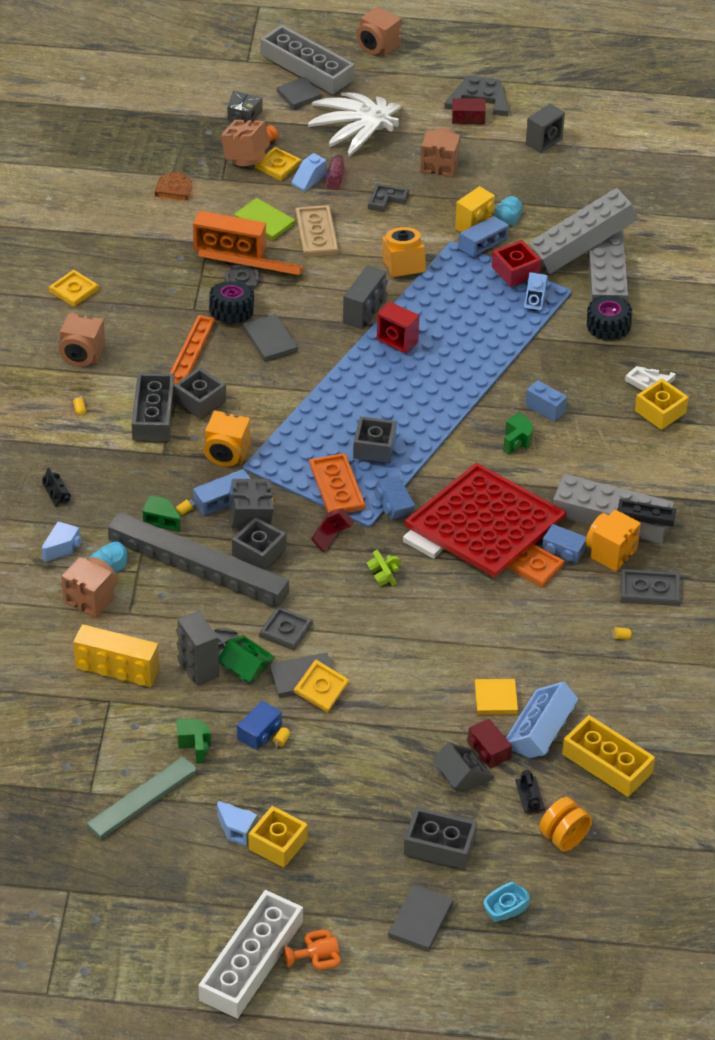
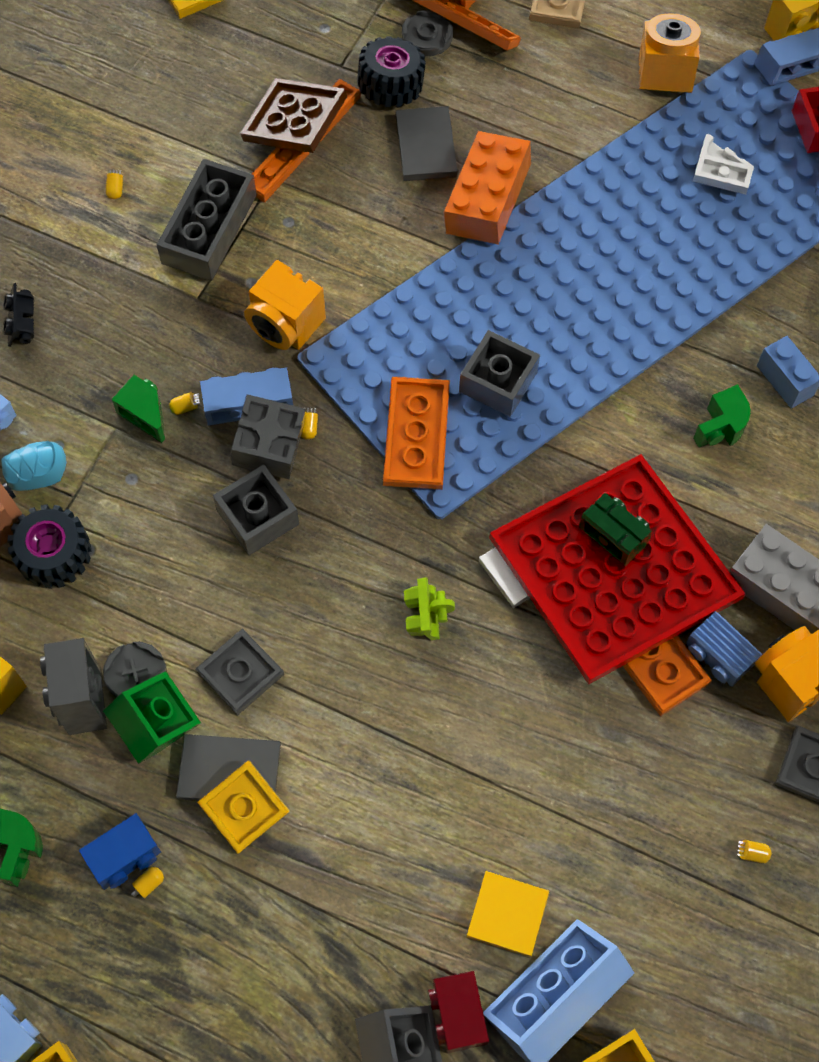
camera: 20 degrees right, 20 degrees up
(82, 340) = (154, 79): nougat piece -> none
(141, 594) = (49, 546): none -> black wheel
(180, 339) = (294, 115): none -> reddish brown plate
(199, 560) = (162, 509): dark grey brick -> none
(200, 392) = (282, 213): dark grey brick -> none
(322, 349) = (488, 187): none -> orange brick
(329, 528) = (373, 510): dark red bracket -> none
(364, 297) = (583, 114): dark grey brick -> none
(394, 497) = (490, 484): medium blue brick -> none
(398, 327) = (609, 183): red brick -> none
(462, 306) = (722, 168): none -> white wing
(478, 497) = (615, 528): none -> dark green brick

